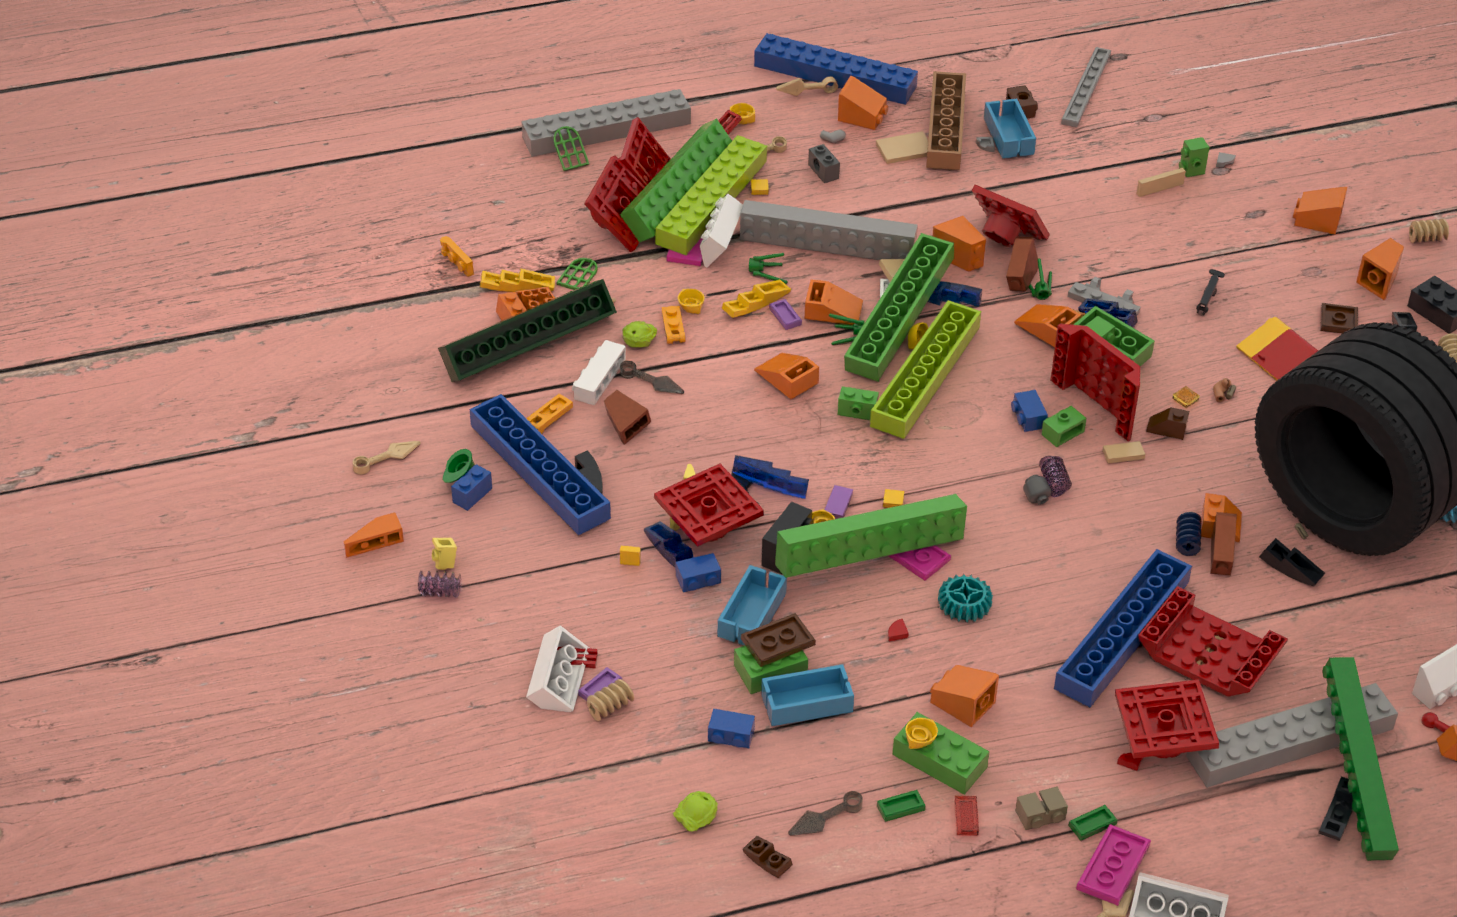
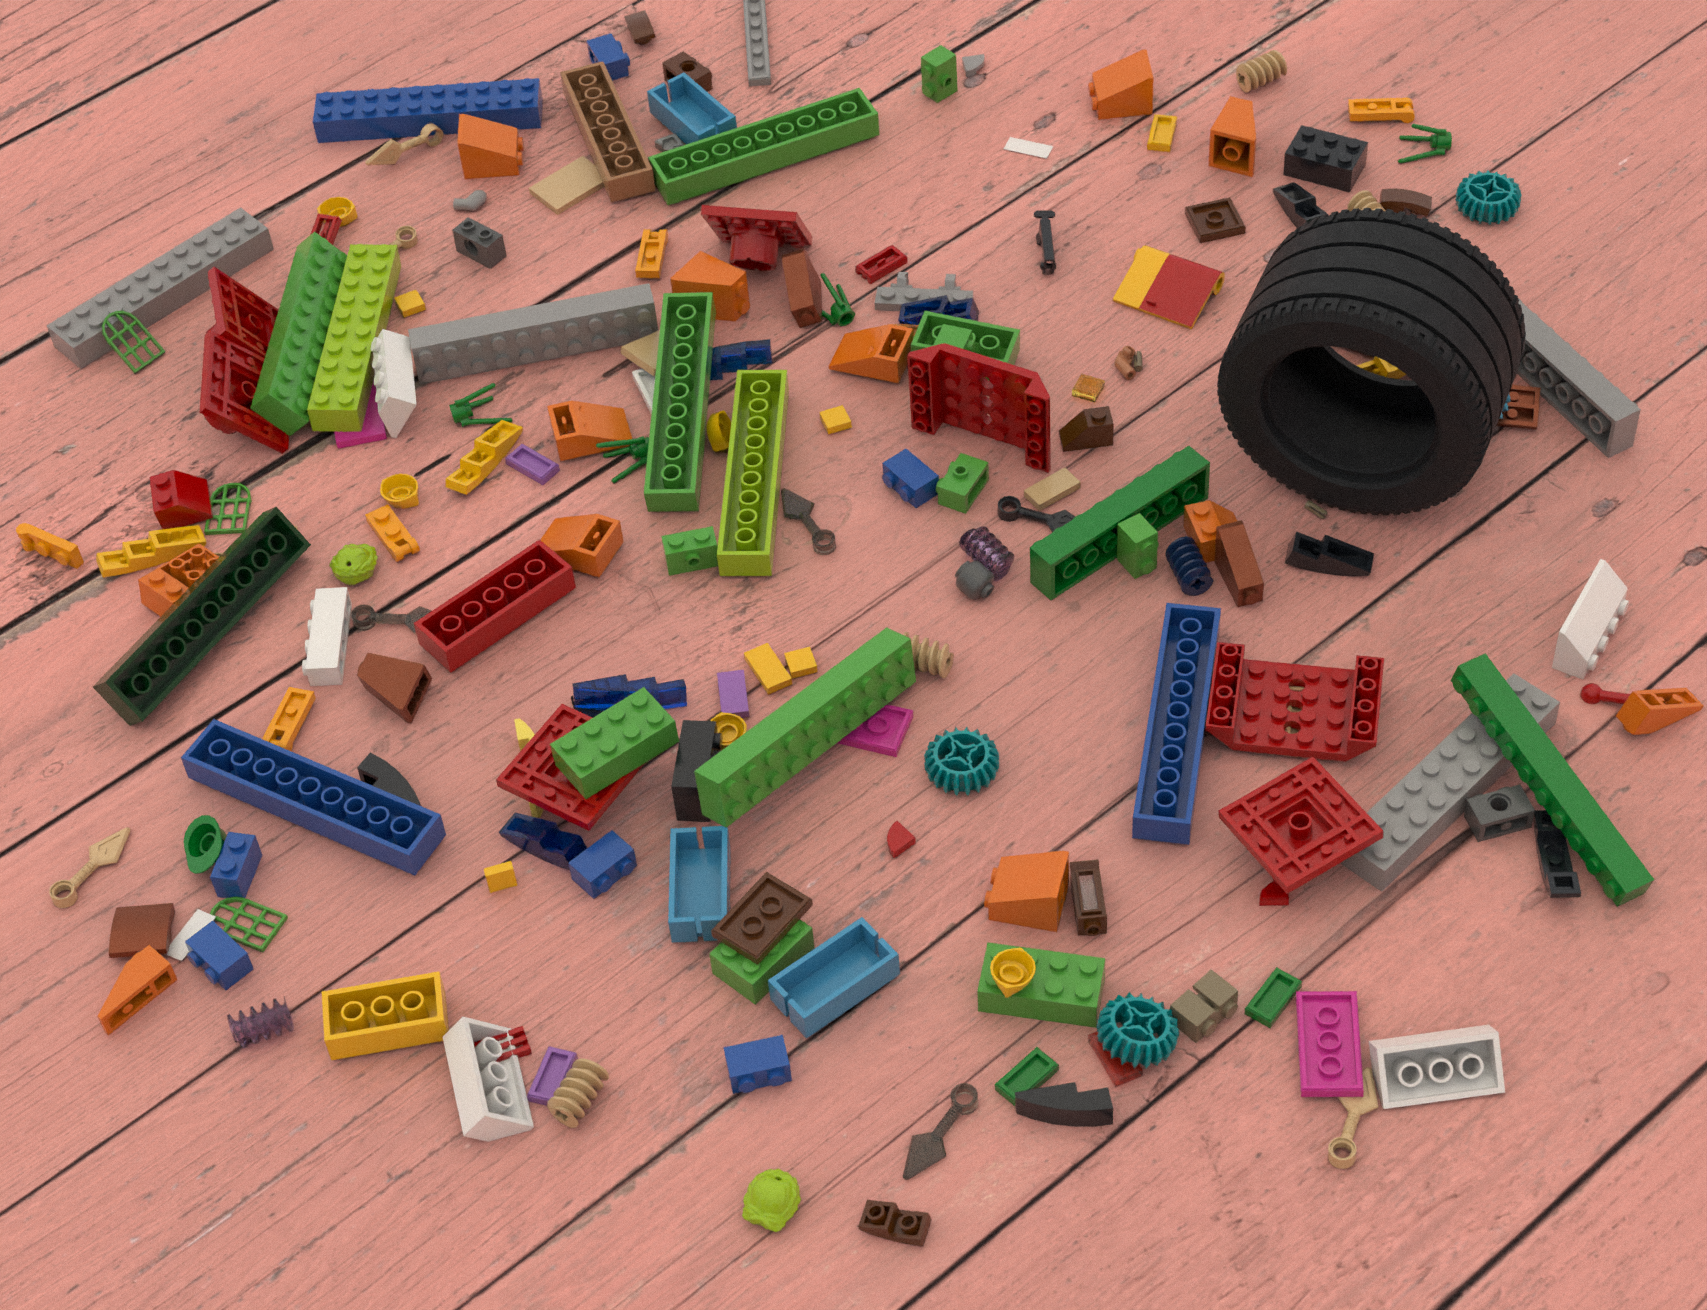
camera: 20 degrees left, 5 degrees up
(396, 500) = (141, 926): none -> copper slope
(424, 517) = (178, 946): none -> white sticker
(429, 528) = (218, 955): none -> blue brick
(444, 553) = (246, 975): light yellow brick -> none
(462, 516) = (252, 931): none -> bright green window
(515, 608) = (384, 1015): none -> yellow brick
(550, 256) = (180, 499): none -> red slope
(713, 391) = (495, 605): none -> red brick
(738, 497) = (614, 742): none -> bright green brick
(869, 494) = (767, 668): none -> yellow tile
(915, 831) = (1066, 1105): none -> black slope
(934, 209) = (651, 253): none -> light orange plate
(946, 403) = (800, 509): none -> clear smoke piece
(975, 73) = (611, 53): none -> blue brick
(979, 526) = (931, 657): none -> tan piece
(988, 804) = (1139, 1022): none -> teal gear
(1000, 356) = (835, 419): none -> yellow tile
(1002, 713) = (1088, 898): none -> reddish brown window
(1006, 61) = (640, 27): none -> reddish brown slope
(1048, 164) = (764, 146): none -> bright green brick
(1087, 268) = (883, 266): none -> red tile
(1116, 475) = (1052, 520): none -> black piece
(1154, 487) = (1091, 537): none -> green brick
(1158, 507) = (1137, 546): none -> bright green brick
(1160, 182) = (913, 120): tan tile -> none
(1233, 227) = (1028, 147): none -> white sticker
(1315, 768) = (1499, 813): none -> dark grey brick
(1334, 249) = (1162, 133): none -> yellow tile

